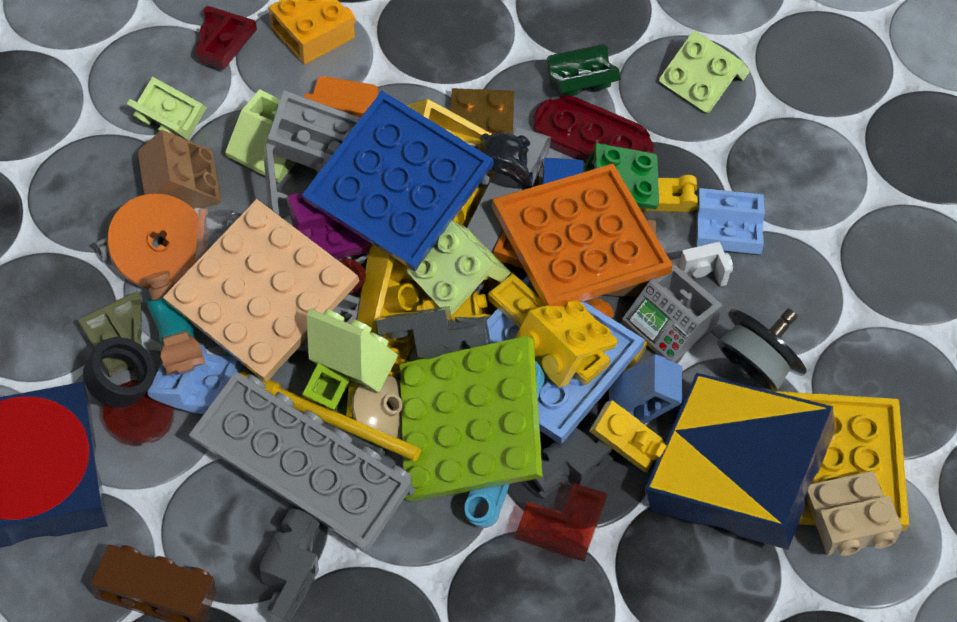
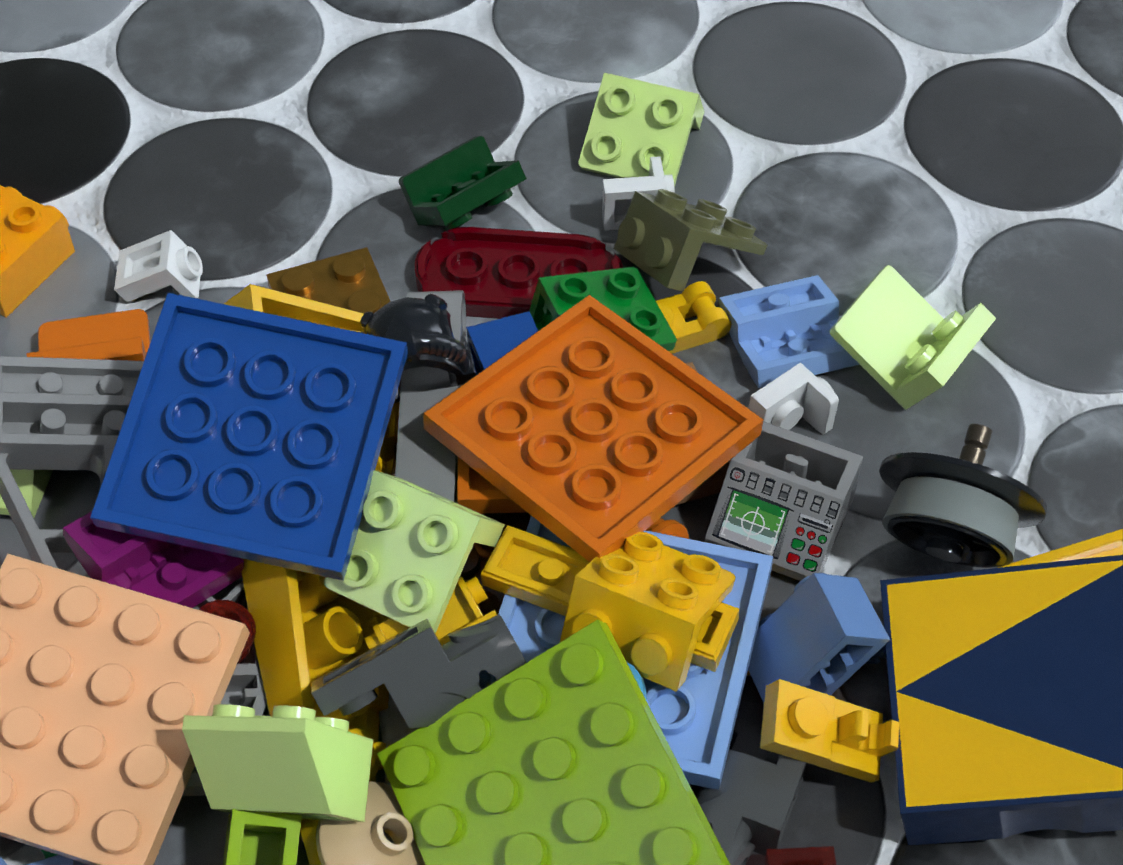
camera: 20 degrees left, 5 degrees down
(394, 62) = (158, 264): none -> white bracket
(680, 114) = (619, 192): none -> white bracket
(686, 137) = (666, 234): none -> olive bracket
(789, 246) = (905, 338): none -> yellowish green bracket

